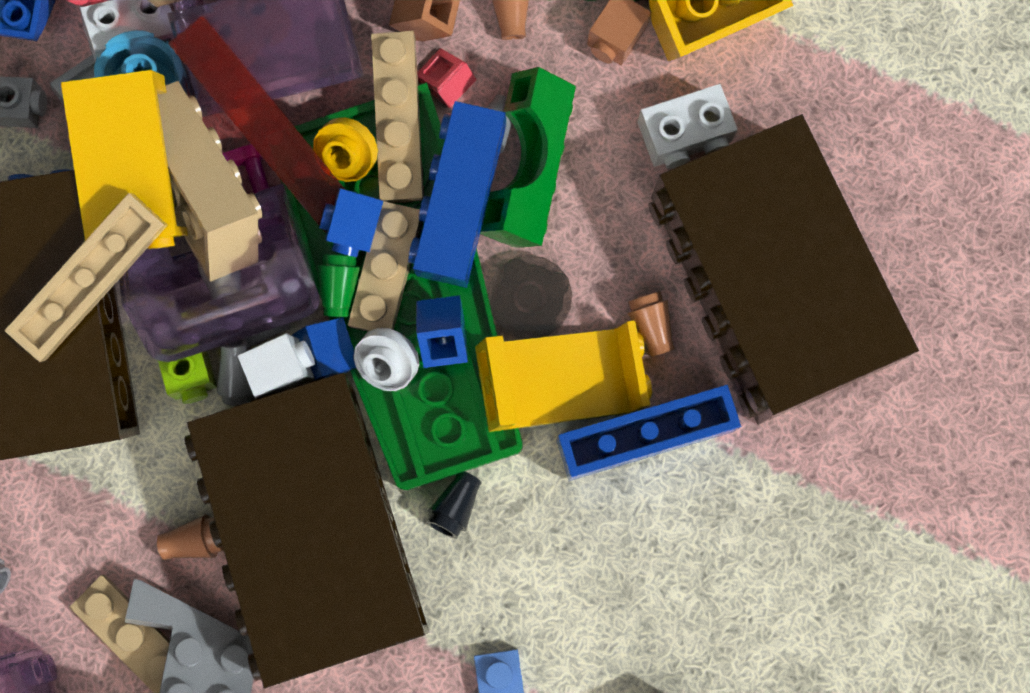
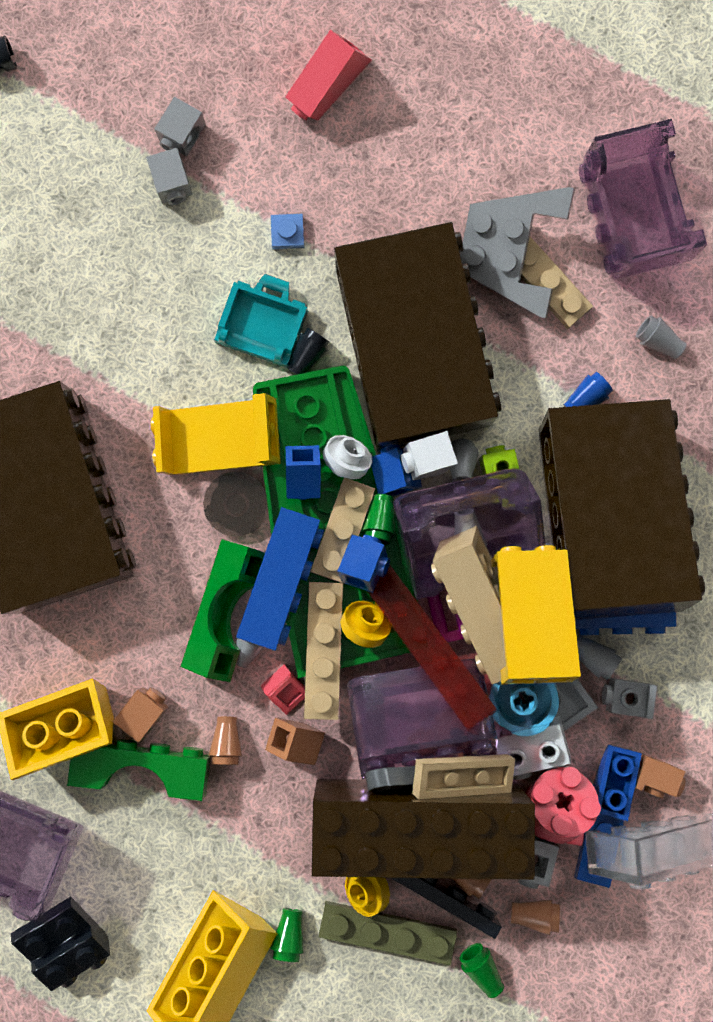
camera: 175 degrees left, 5 degrees up
(48, 144) = (597, 657): none -> light grey cone
(73, 482) = (591, 391): none -> blue cone
(86, 277) = (565, 522): tan plate -> none
(189, 541) = (503, 345): nougat cone -> none
(521, 541) = (262, 322): none -> teal piece
(648, 432) = (157, 387): blue brick -> none
(653, 322) = (144, 479): nougat cone -> none
(687, 126) = (96, 627): white brick -> none

